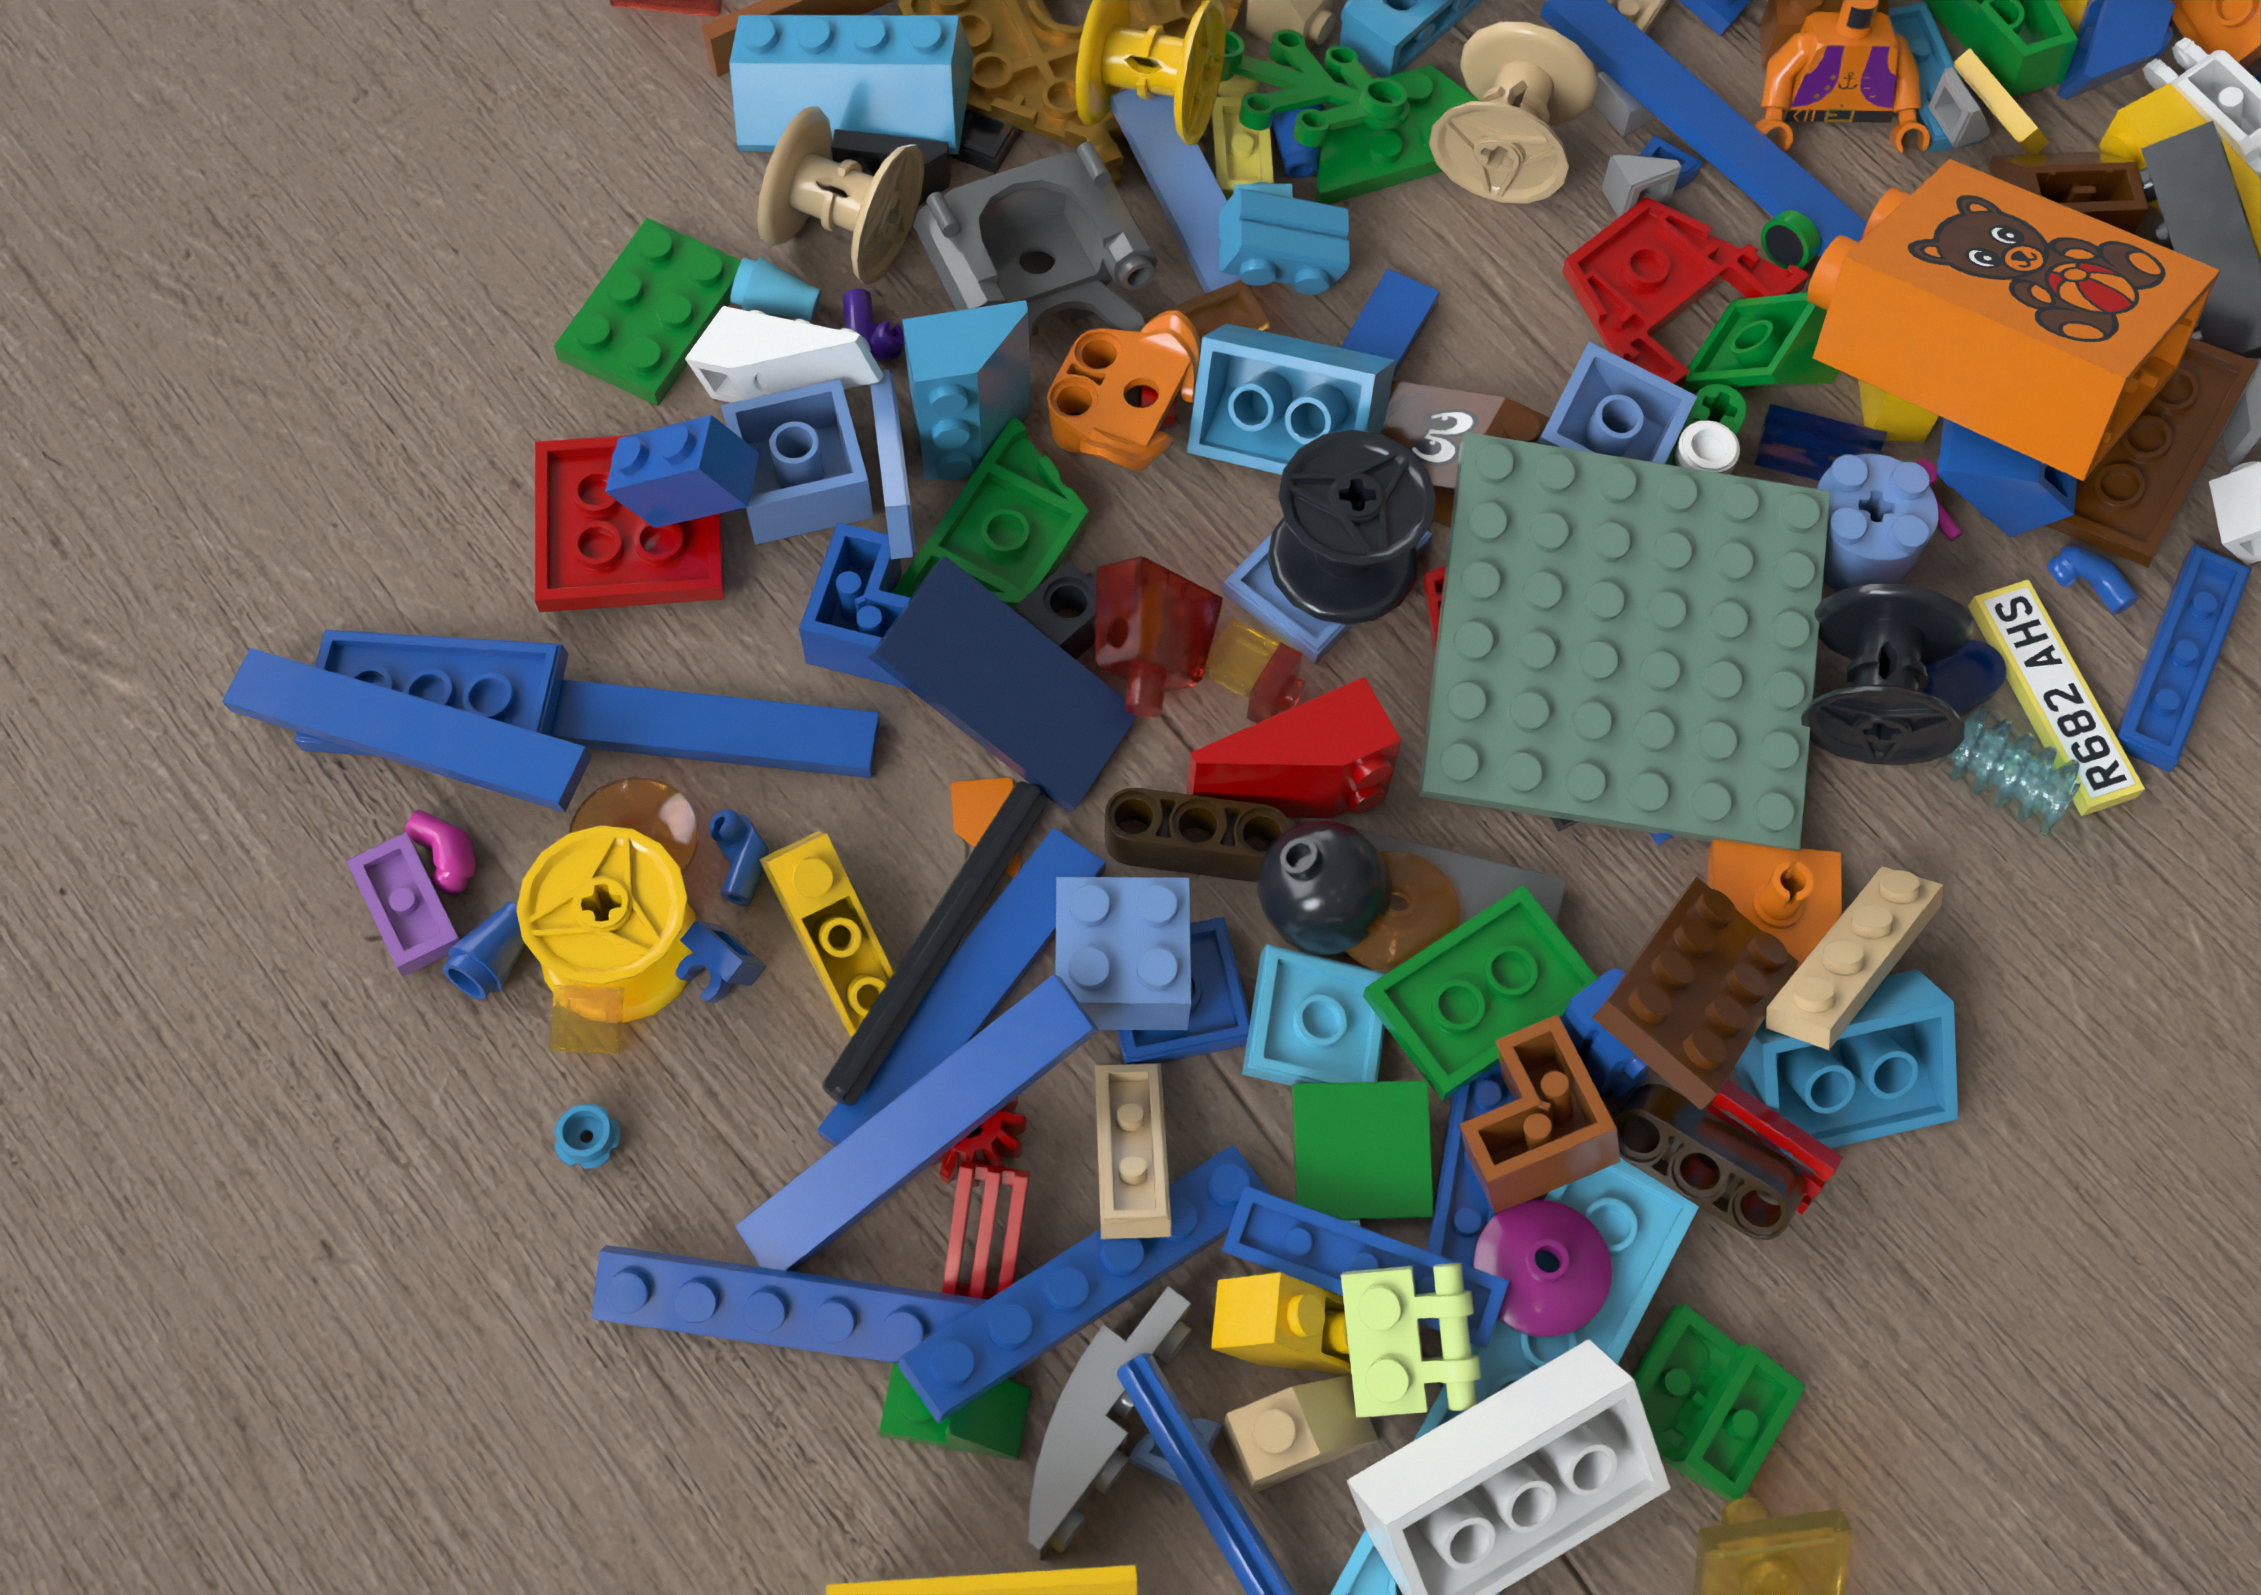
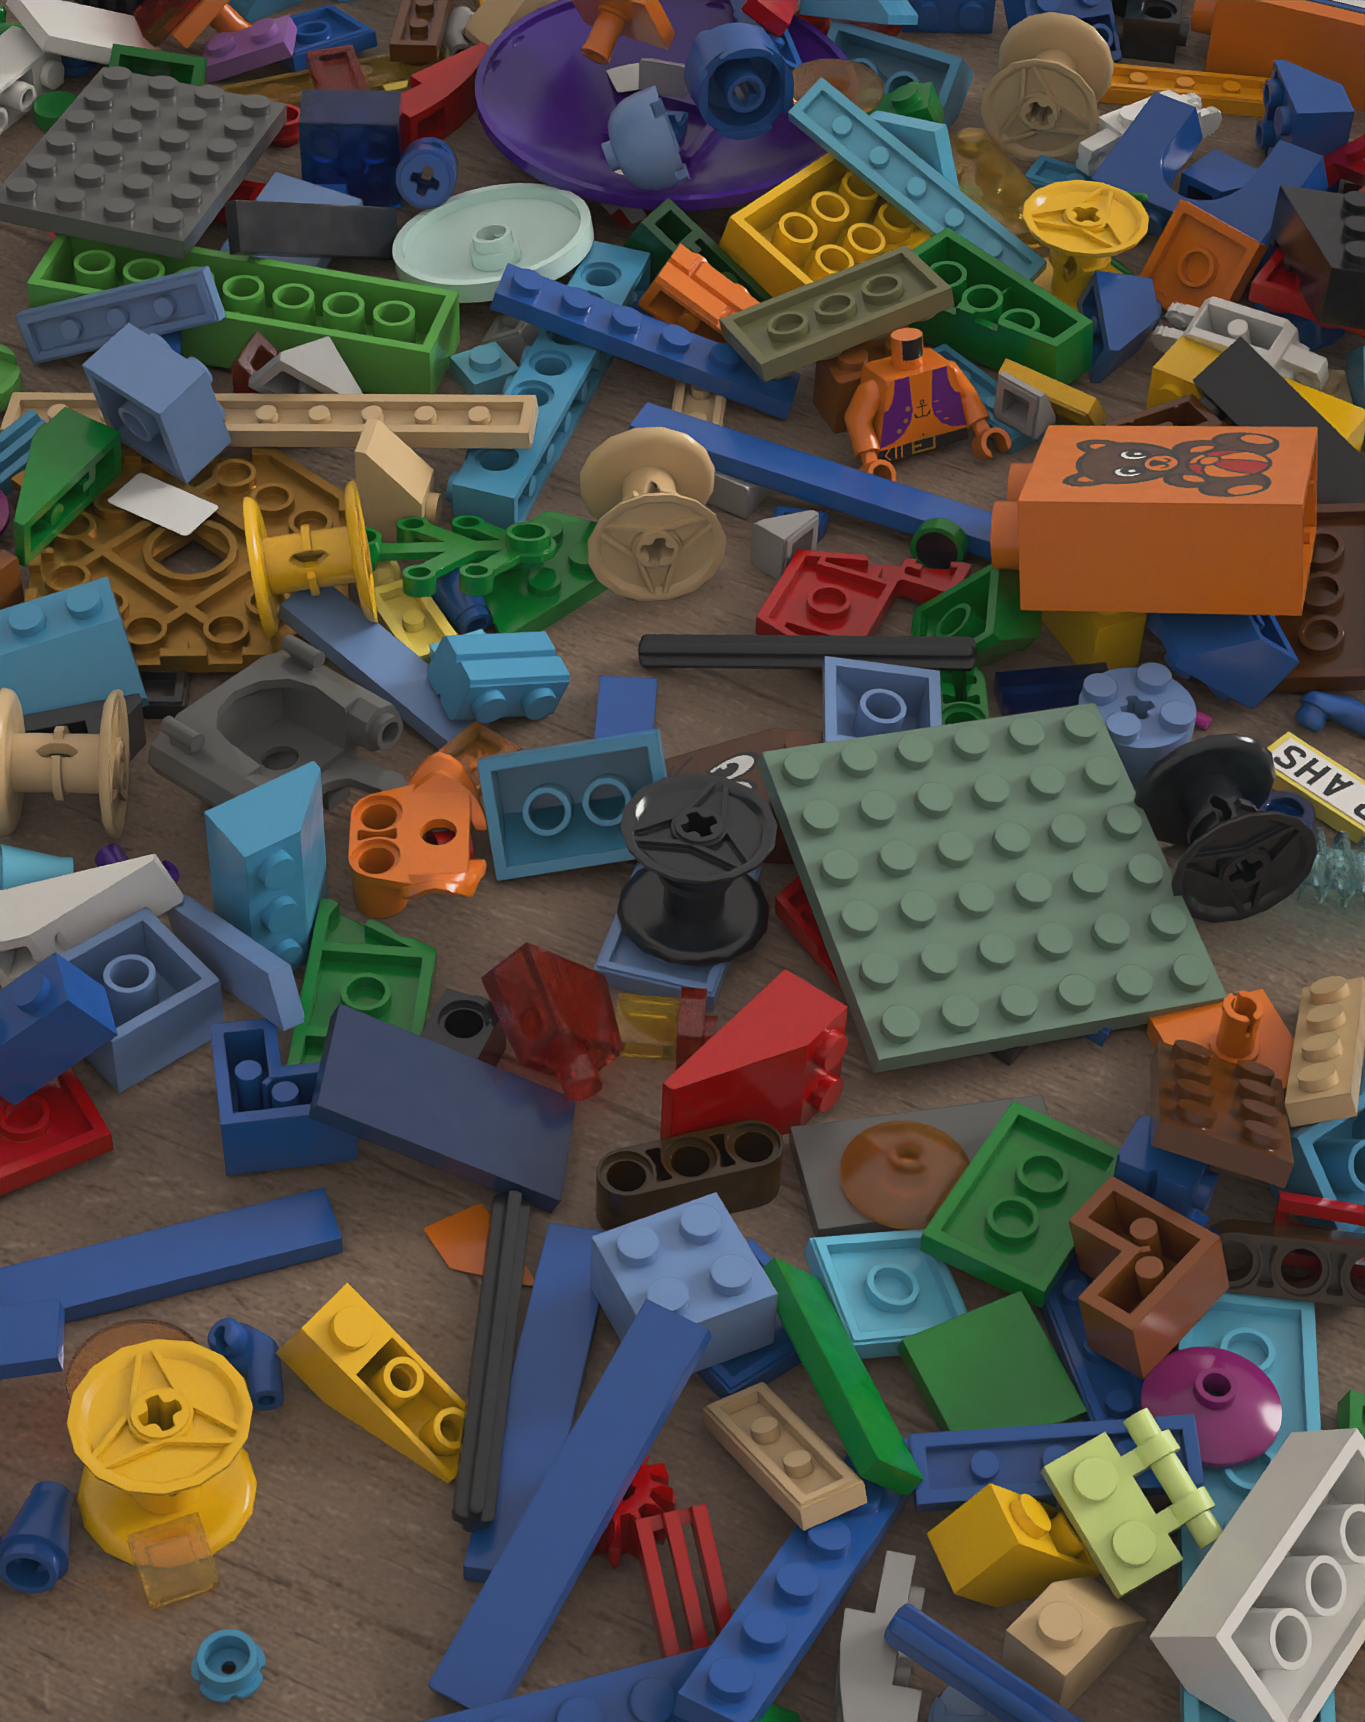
camera: 25 degrees left, 20 degrees down
(722, 956) = (283, 1448): blue tile -> none
(1213, 1101) = (842, 1380): none -> green tile
(1323, 886) = (835, 1167): black cylinder -> none
(1594, 321) = (804, 651): none -> black axle
(1707, 448) = (969, 704): white tile -> none

